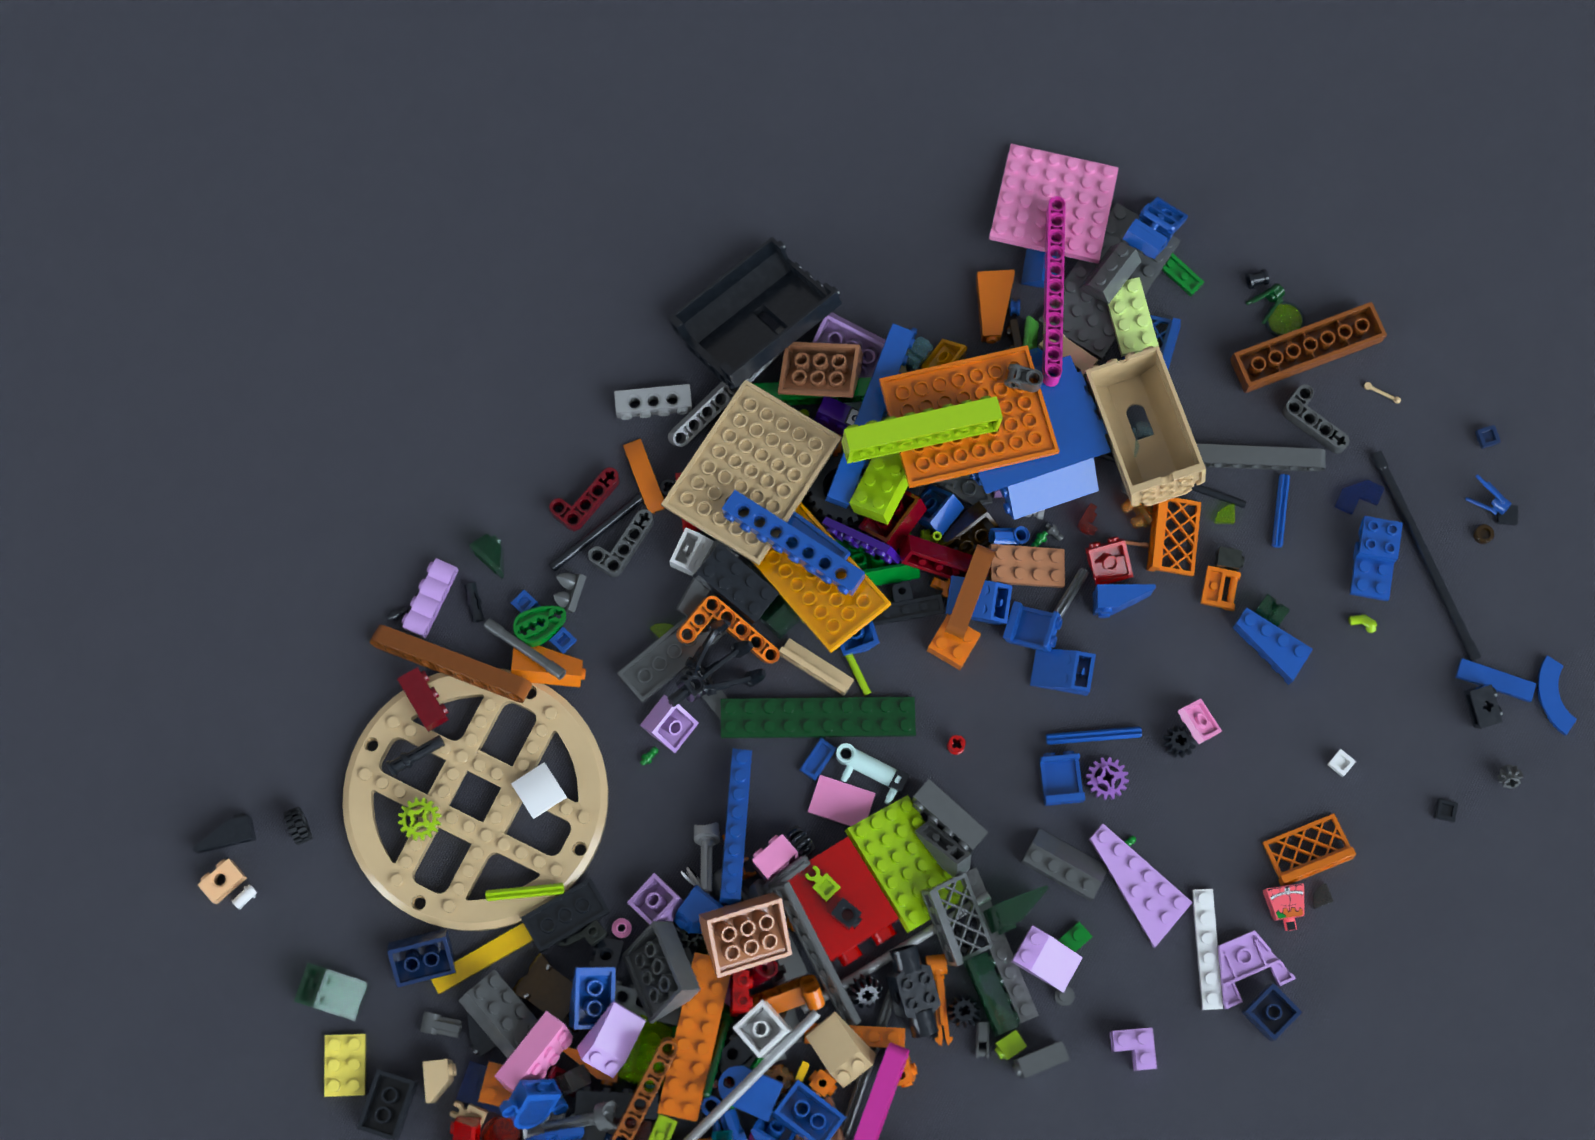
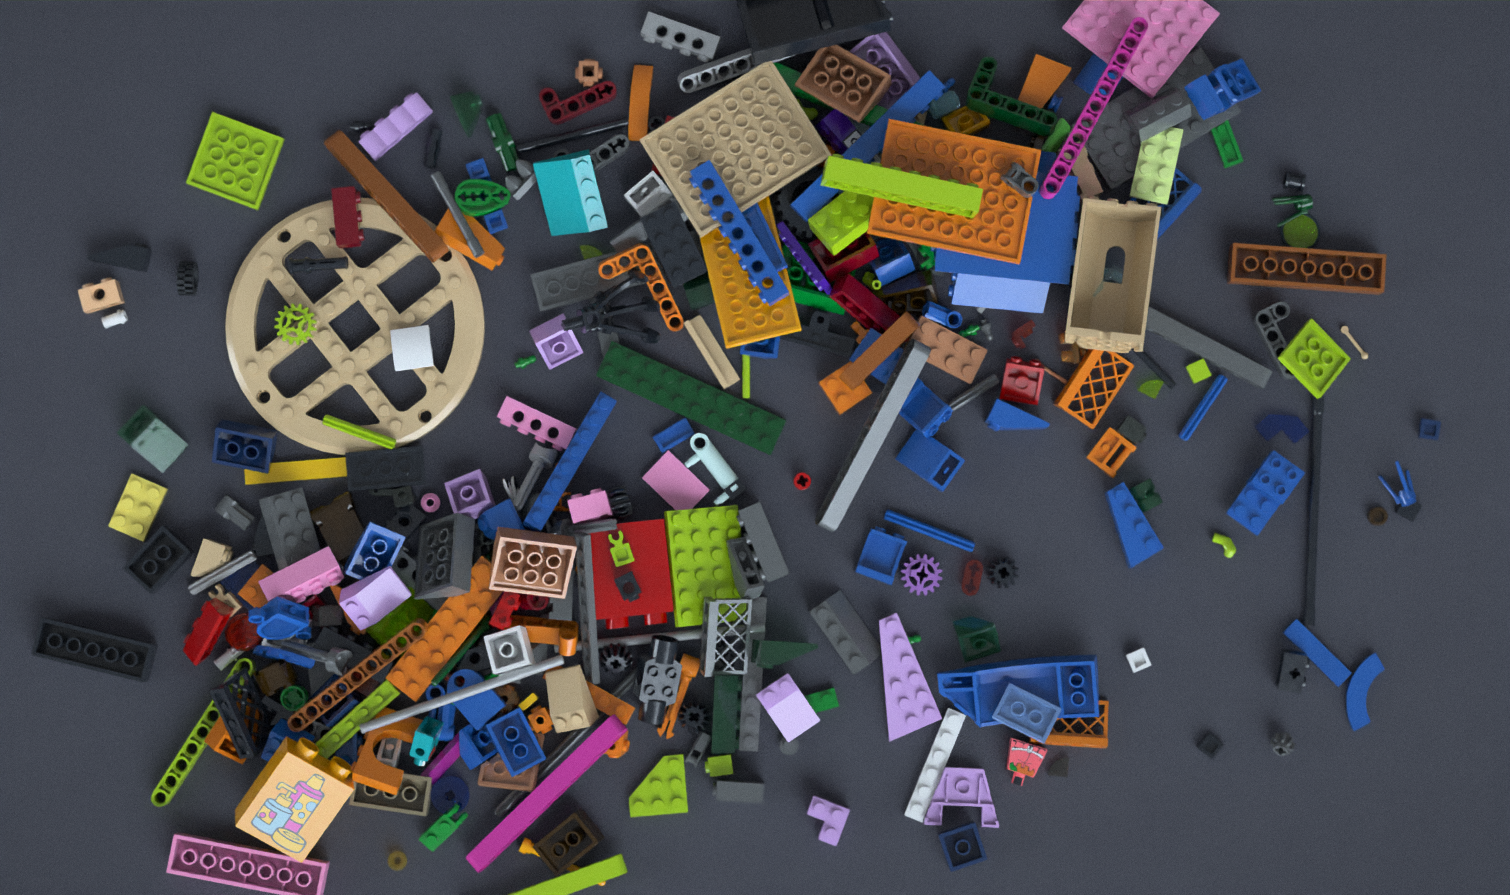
camera: 25 degrees right, 10 degrees up
(294, 698) = (235, 161): none -> lime plate
(454, 1088) = (222, 572): none -> light grey axle
(535, 567) = (503, 141): none -> dark green piece
(585, 463) = (586, 66): none -> nougat brick
(620, 583) = (570, 194): none -> teal slope
(656, 802) = (512, 406): none -> bright pink brick
(967, 1096) = (661, 790): none -> lime plate
(968, 485) = (925, 252): none -> green bracket
(974, 329) = (1004, 105): none -> dark green beam
(1000, 672) = (872, 435): none -> beam
(1158, 758) = (976, 579): none -> clear red beam
(1185, 812) = (976, 638): none -> slope
(1199, 721) = (1029, 563): bright pink plate -> none
(1254, 838) = (1060, 680): none -> blue slope
(1259, 480) = (1198, 371): none -> lime tile
(1268, 859) = (1026, 713): none -> medium blue plate
(1356, 420) = (1314, 358): none -> lime plate

